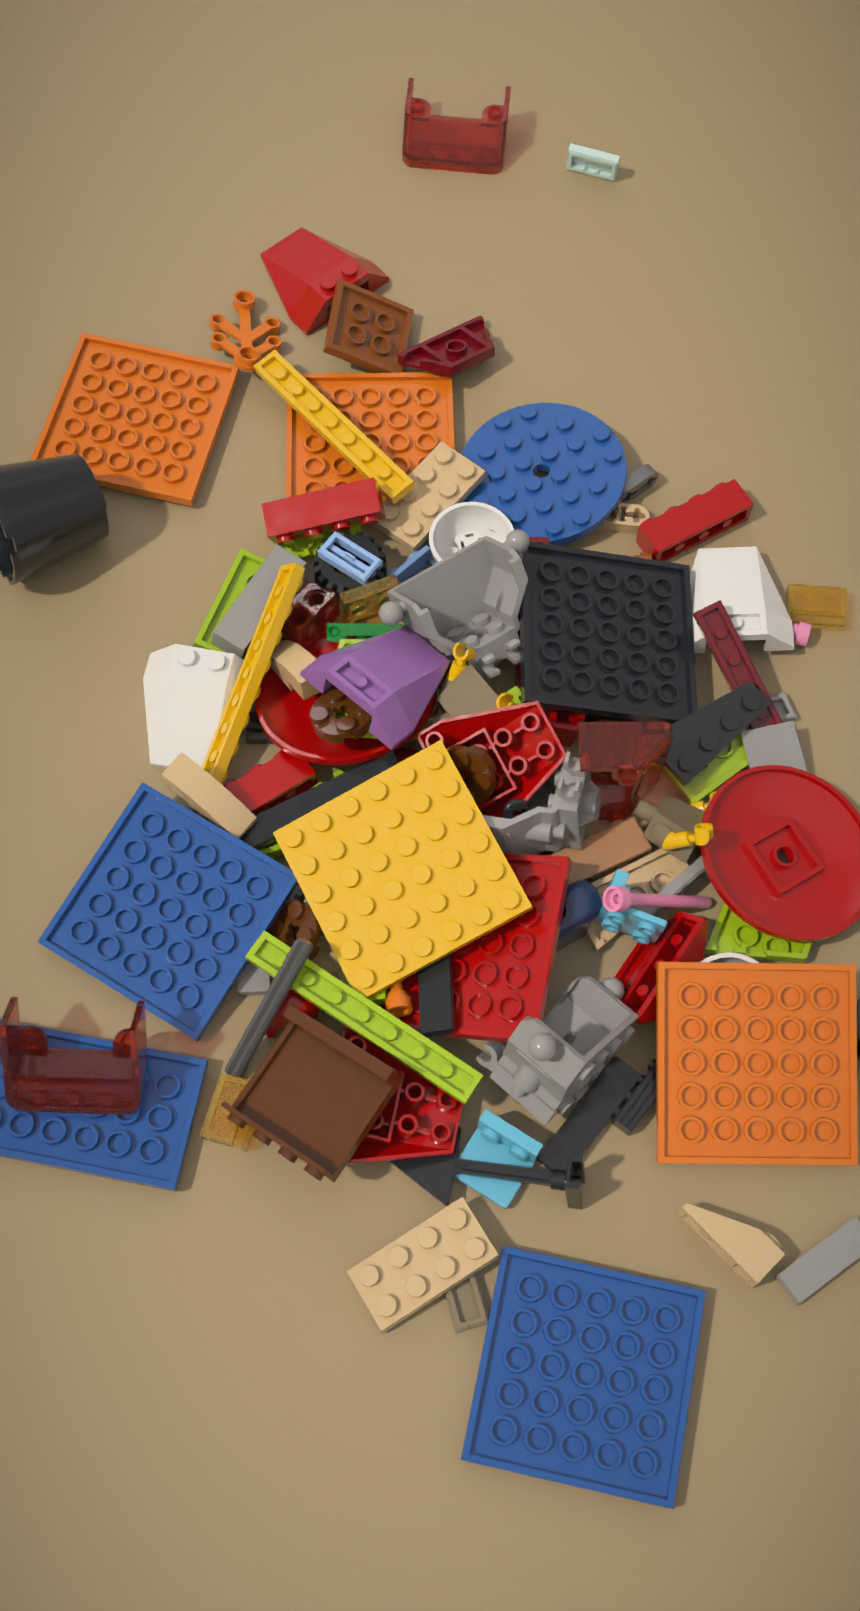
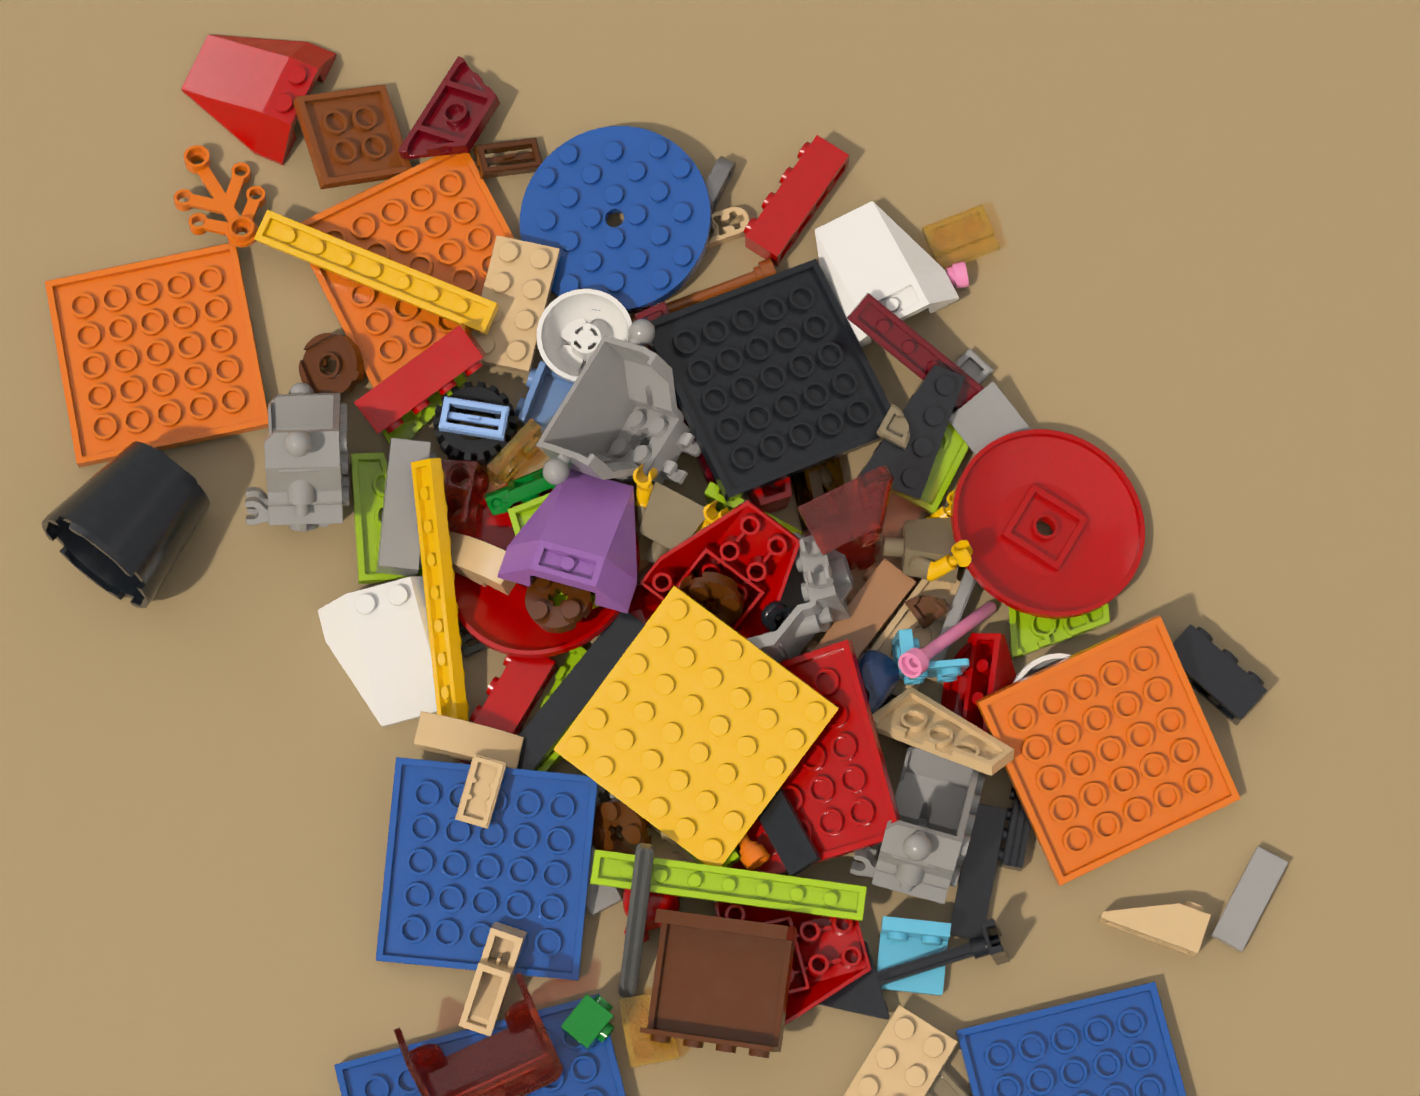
camera: 20 degrees left, 10 degrees up
(119, 1001) = (492, 978): none -> tan slope
(184, 1076) = (590, 1021): none -> green brick
(195, 531) = (303, 462): none -> light grey piece
(196, 839) = (481, 791): none -> tan plate
(271, 489) = (340, 349): none -> reddish brown plate
(479, 400) = (511, 169): none -> reddish brown tile
(612, 973) = (935, 729): none -> tan wing
(651, 874) = (927, 609): none -> reddish brown tile
(692, 714) = (895, 428): none -> dark tan tile

